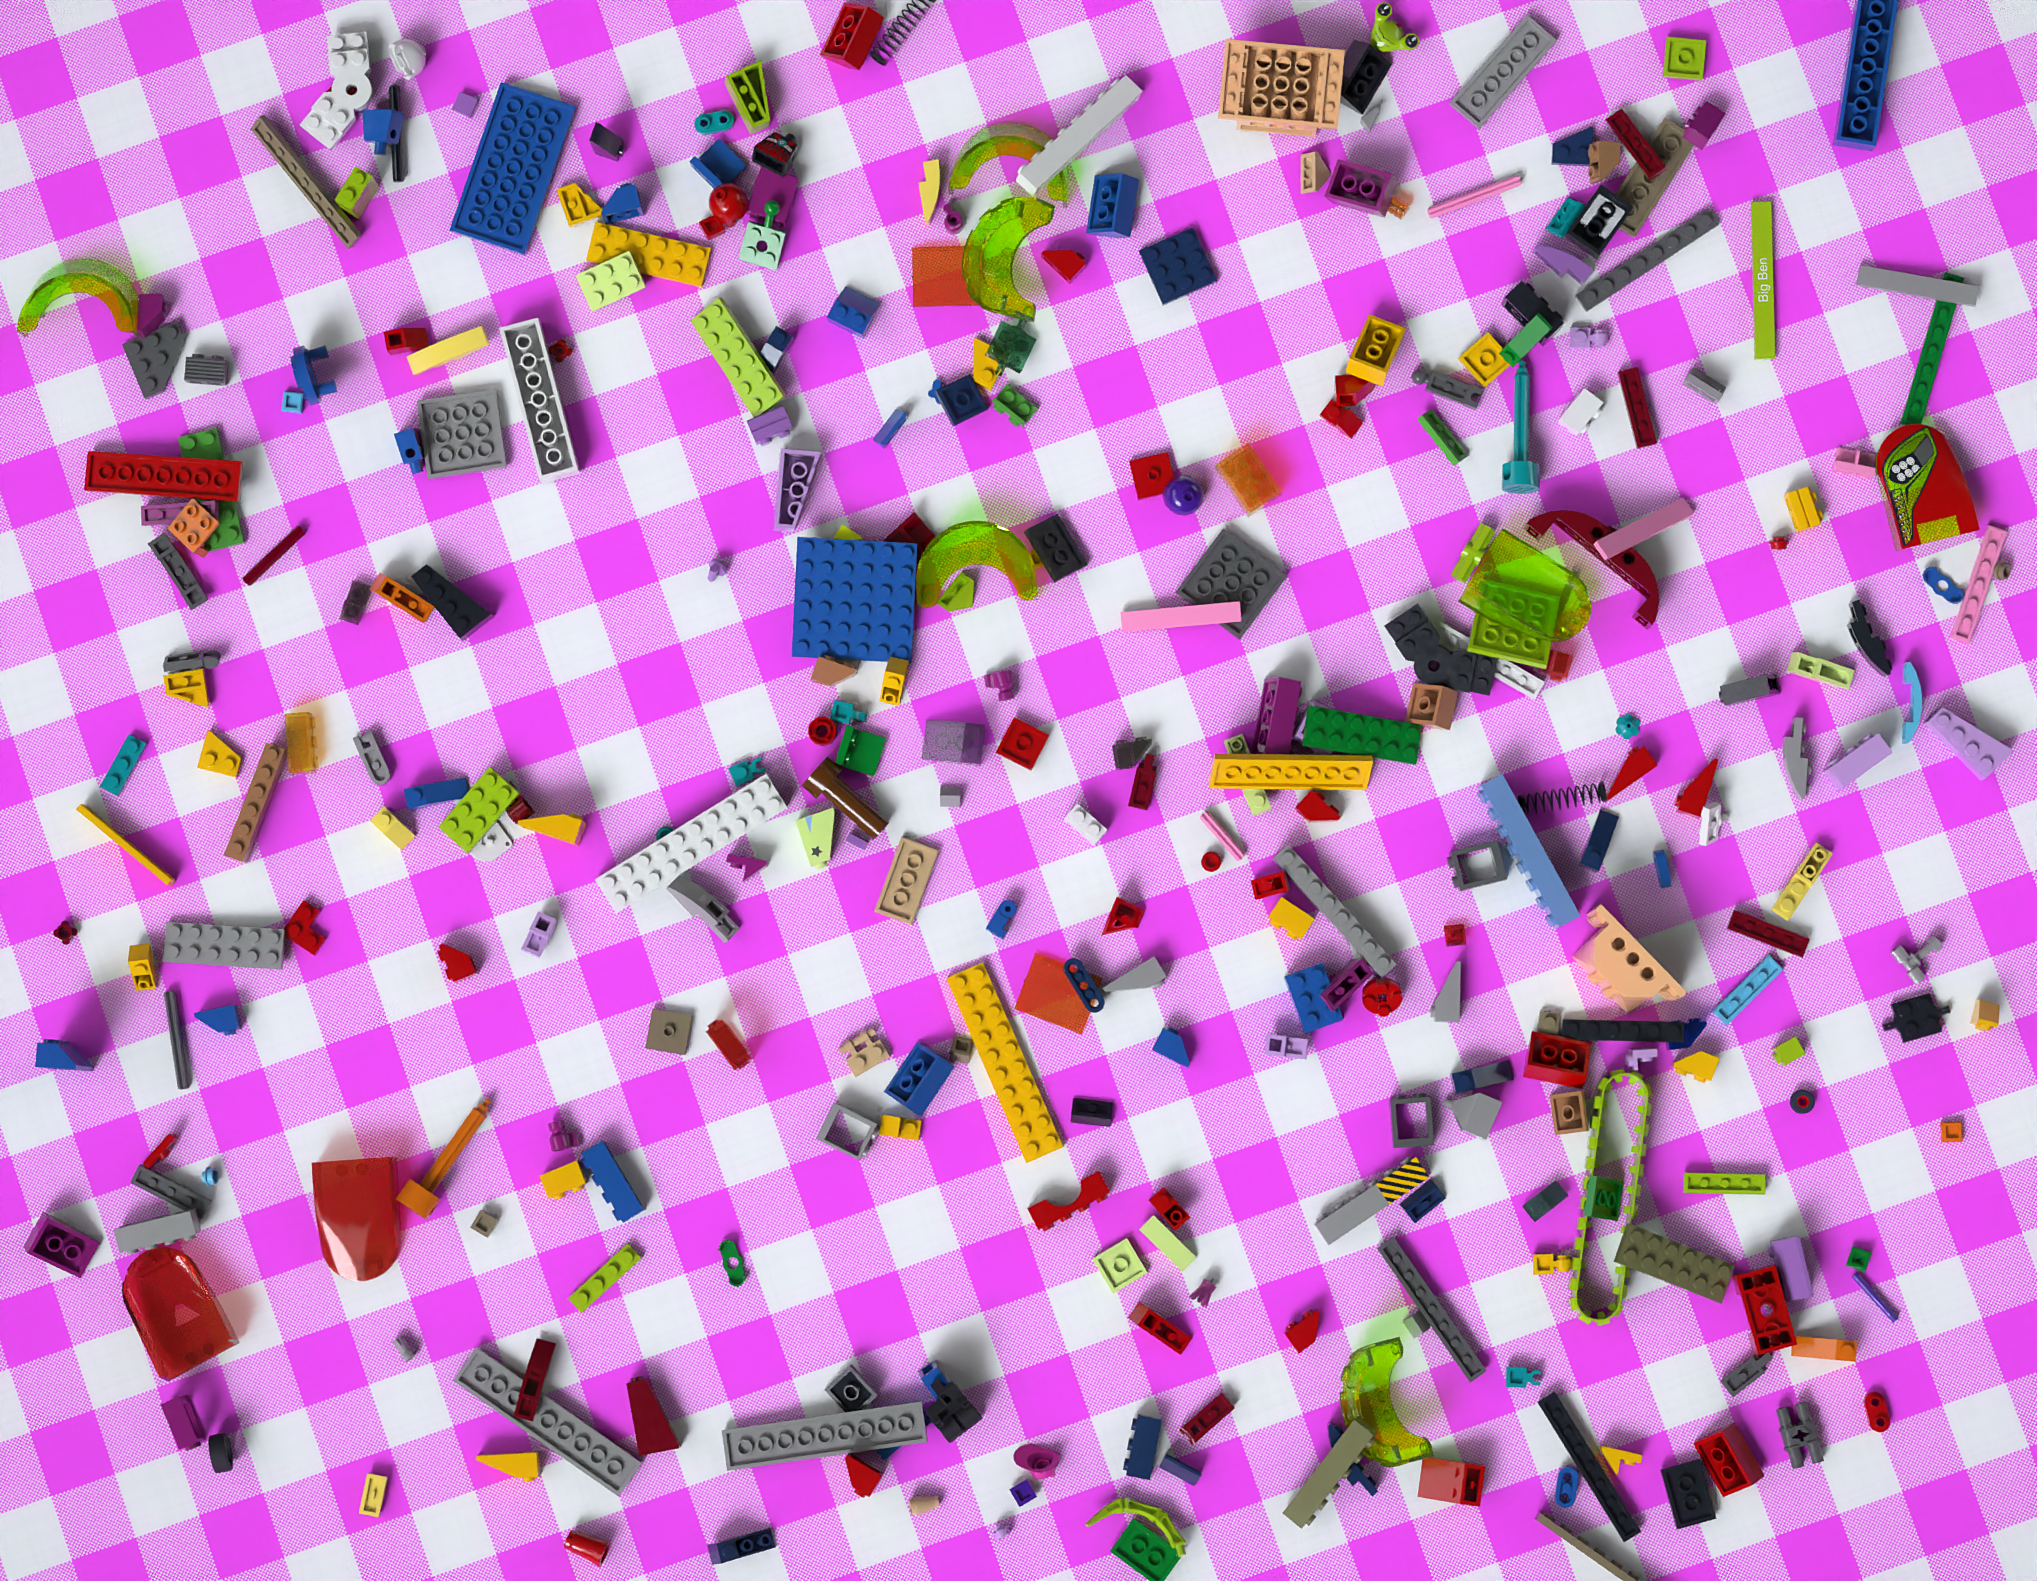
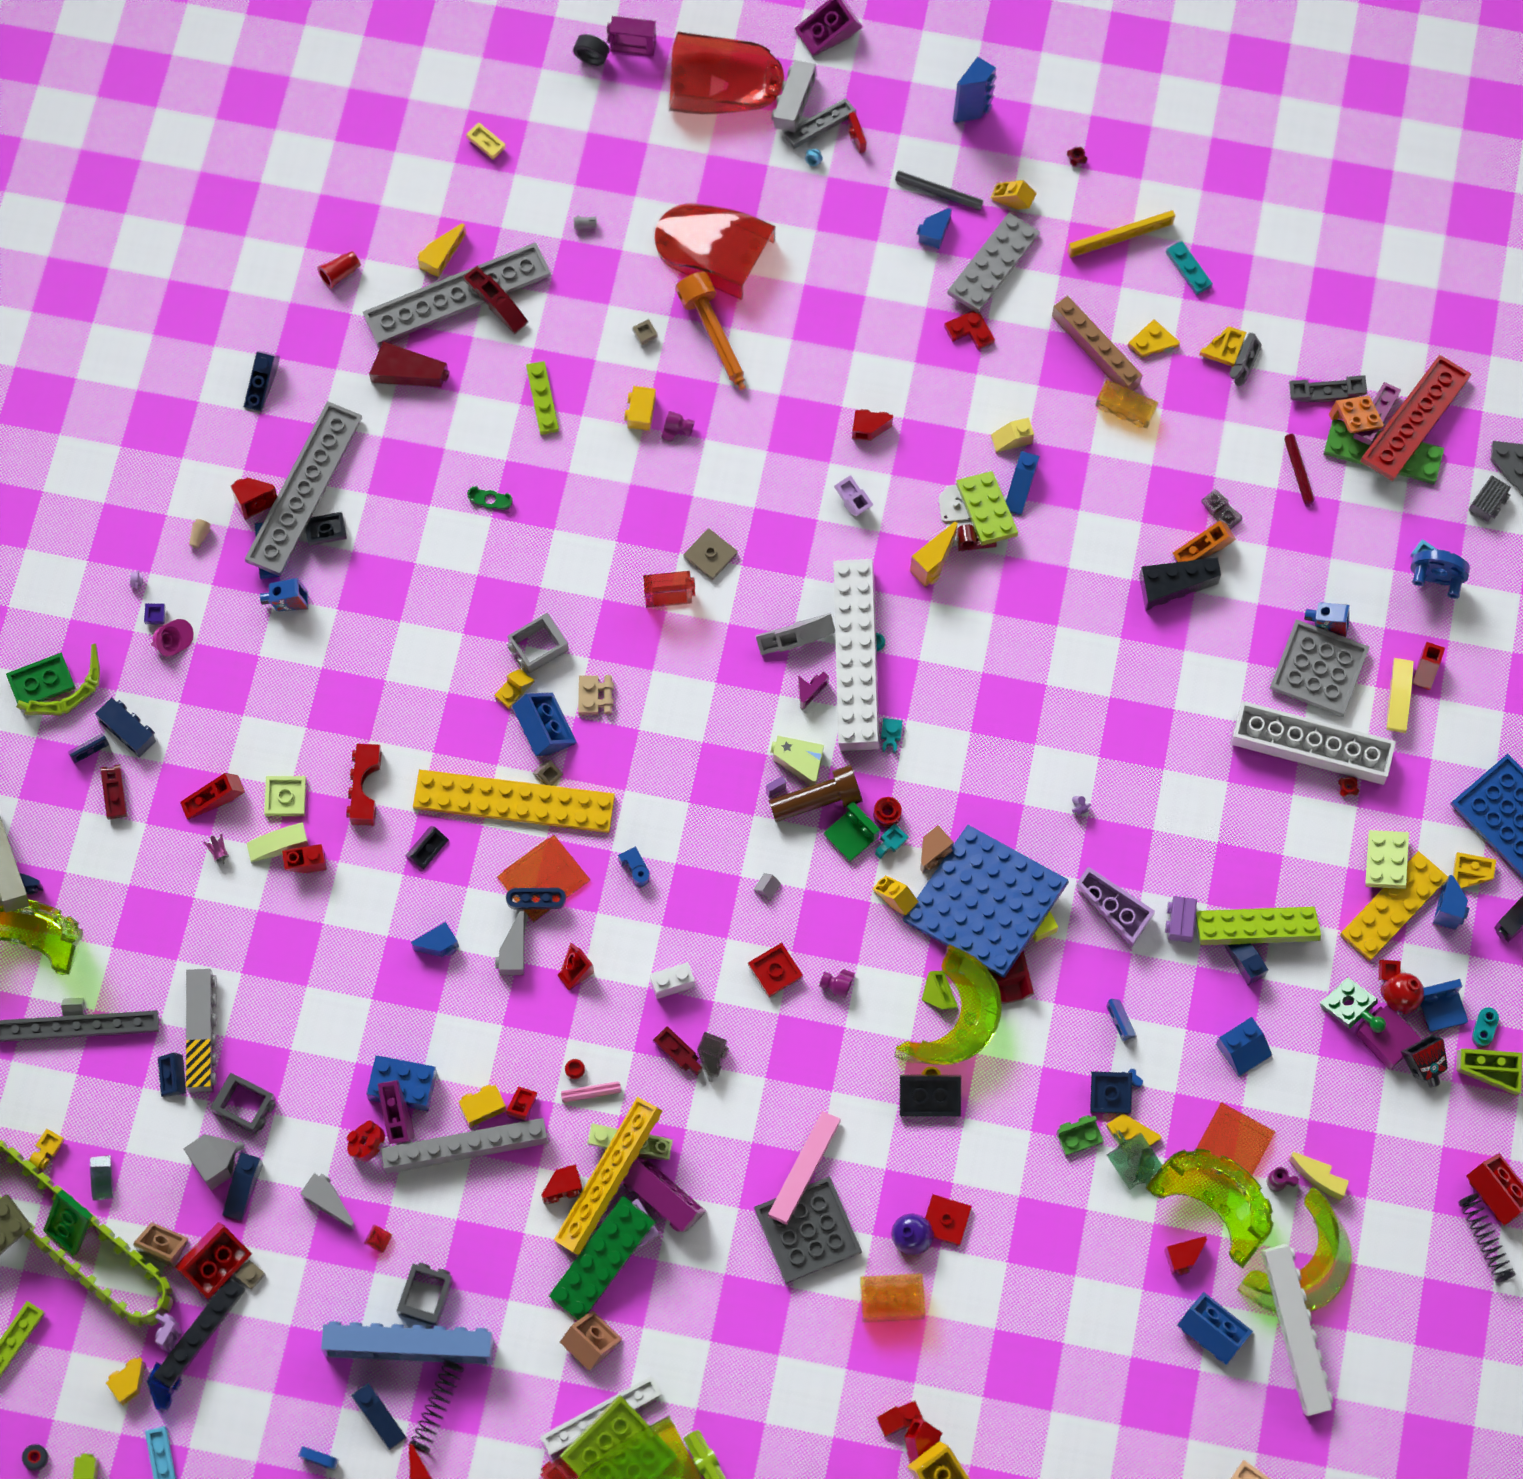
camera: 110 degrees right, 15 degrees down
(373, 758) = (1080, 452): light grey plate -> none
(613, 1182) = (615, 443): blue brick -> none
(906, 880) = (717, 810): tan tile -> none
(952, 1411) = (255, 589): black plate -> none
(954, 742) = (810, 915): clear purple slope -> none
(1177, 266) = (1126, 1355): dark blue plate -> none
(1286, 1046) = (376, 1035): lavender brick -> none
(1304, 1332) = (129, 909): red slope -> none
(1419, 643) = (653, 1361): black plate -> none
(1623, 965) = (253, 1360): light nougat wedge -> none

